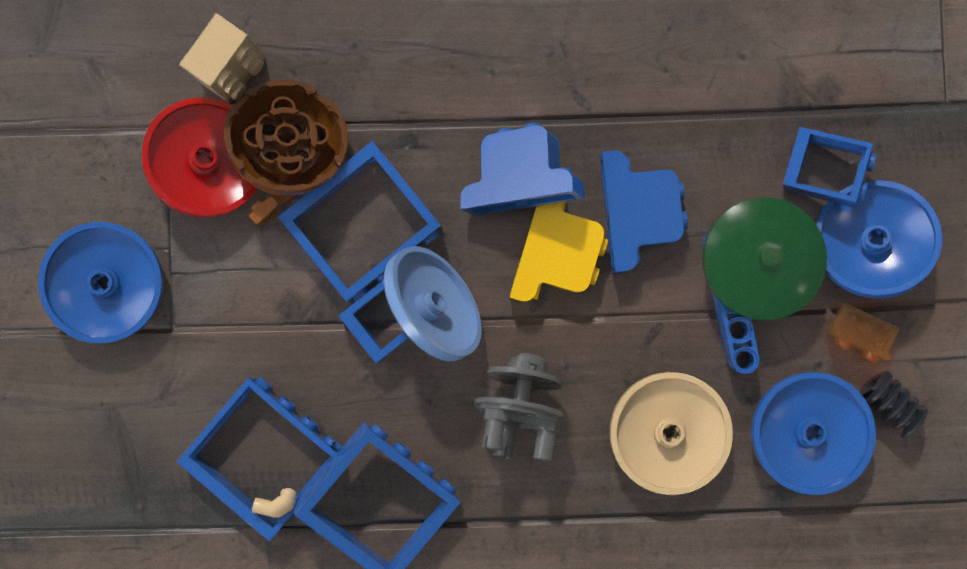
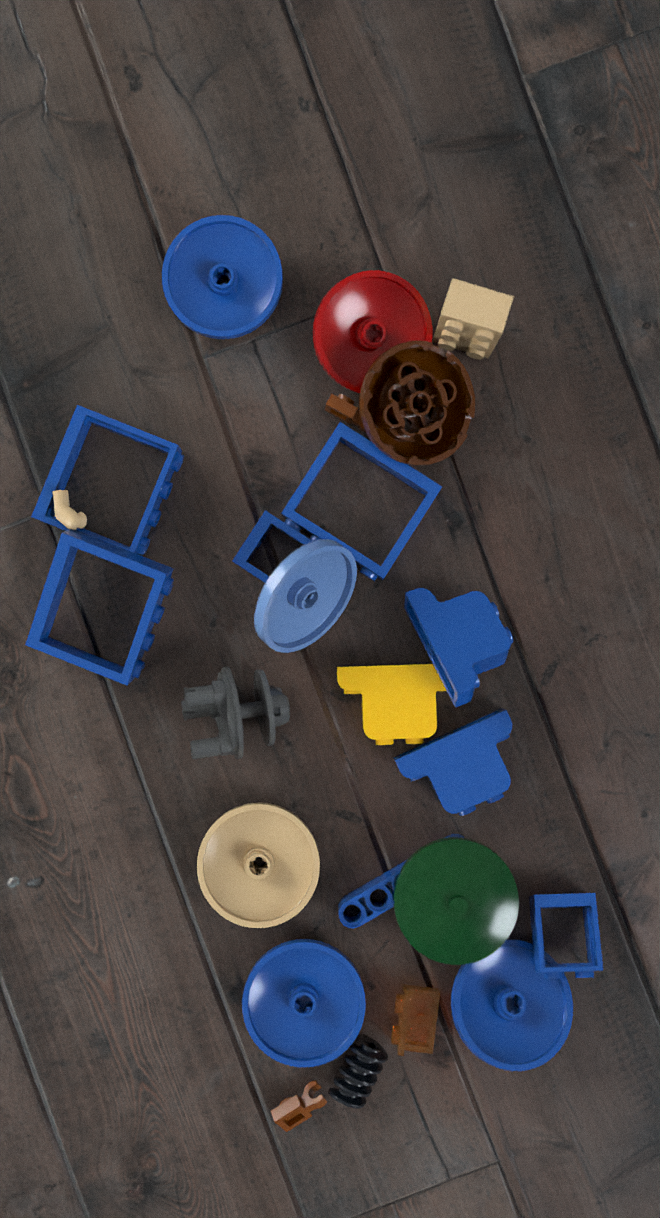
camera: 70 degrees right, 0 degrees up
(910, 473) = (297, 1109): none -> dark orange plate

